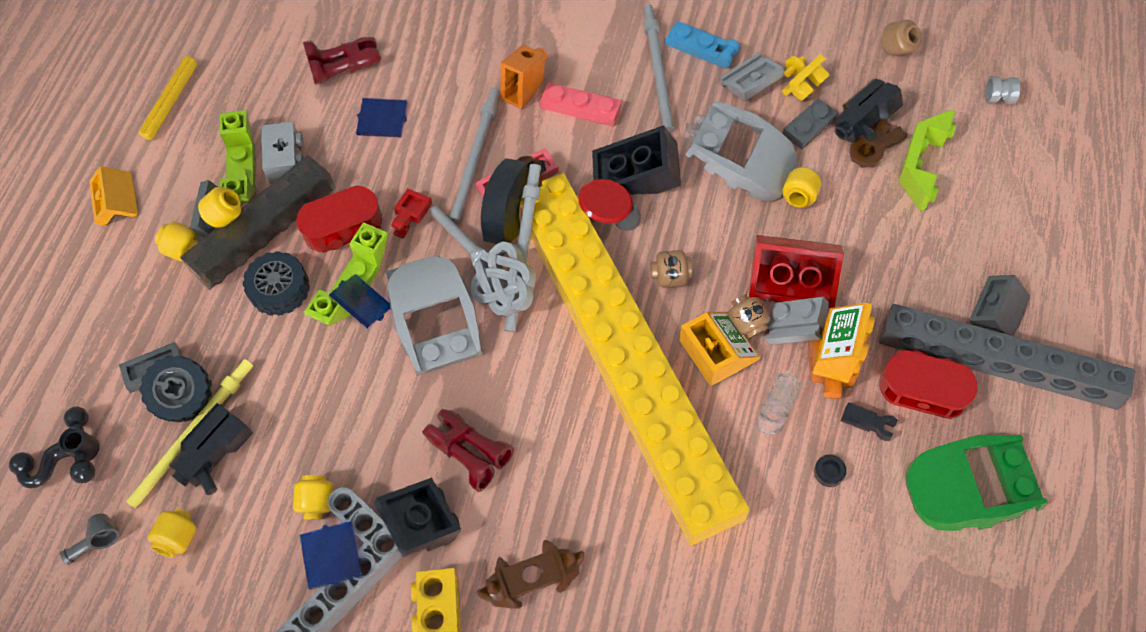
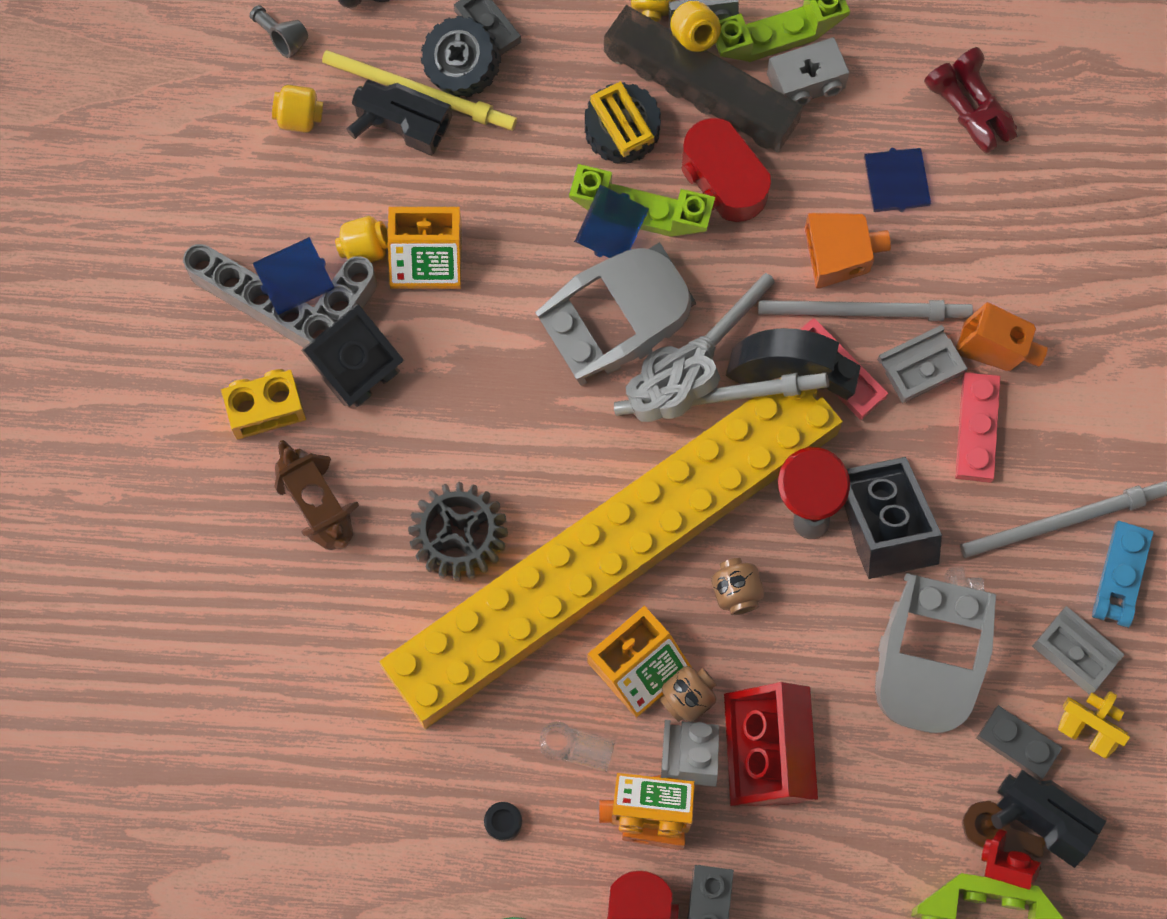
camera: 75 degrees right, 10 degrees up
(275, 281) = (635, 143): none -> yellow tile
(335, 445) = (424, 247): none -> slope
(410, 208) = (762, 249): red plate -> none
(423, 157) = (842, 246): none -> orange torso
(480, 470) = (449, 423): dark red piece -> none
(527, 125) = (922, 364): none -> light grey plate
(608, 449) = (447, 540): none -> dark grey gear
(801, 187) = (901, 739): yellow head -> none
(868, 420) = (576, 858): black bar -> none
(900, 139) = (1008, 867): none -> red bracket

